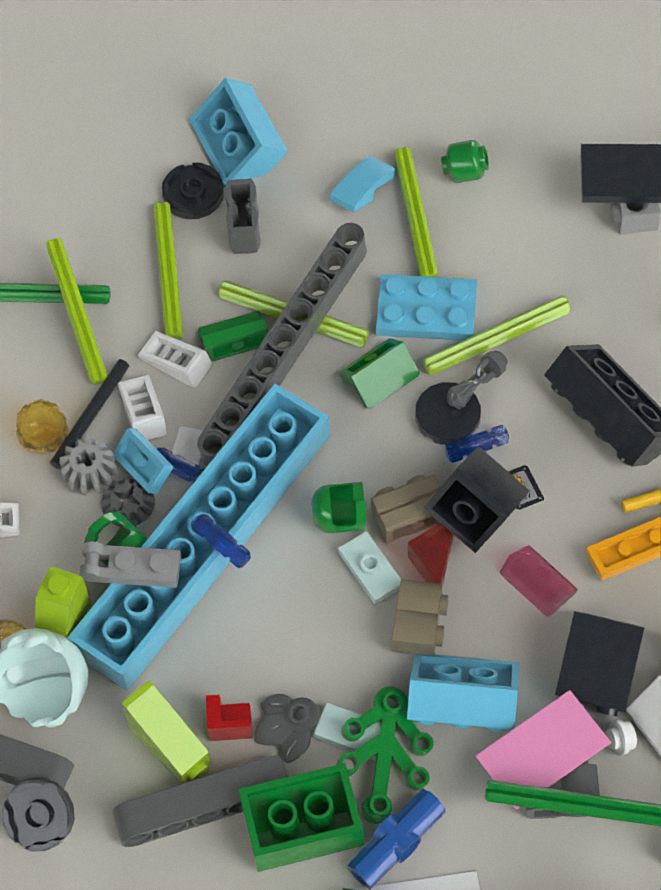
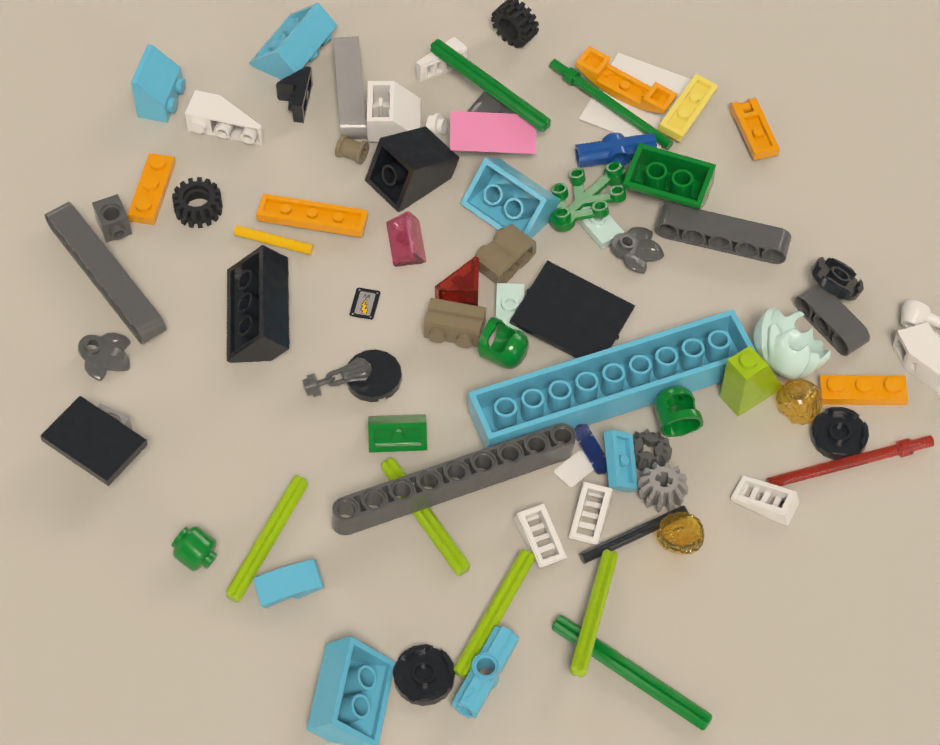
camera: 150 degrees left, 5 degrees down
(131, 565) = (683, 368): light grey plate -> none
(138, 226) = (478, 686): none -> medium azure piece
(166, 734) = (724, 276): lime slope -> none
(221, 541) = (609, 346): clear blue axle -> none
(227, 720) = (674, 269): red panel -> none
(233, 336) = (483, 524): green panel -> none
(242, 216) = (406, 606): dark grey brick -> none
(301, 599) = (571, 312): none -> black piece
(426, 307) = (323, 459): medium azure plate -> none
(476, 499) = (408, 280): black slope -> none
(484, 439) = (371, 342): clear blue axle -> none
(496, 335) = (291, 407): lime axle -> none

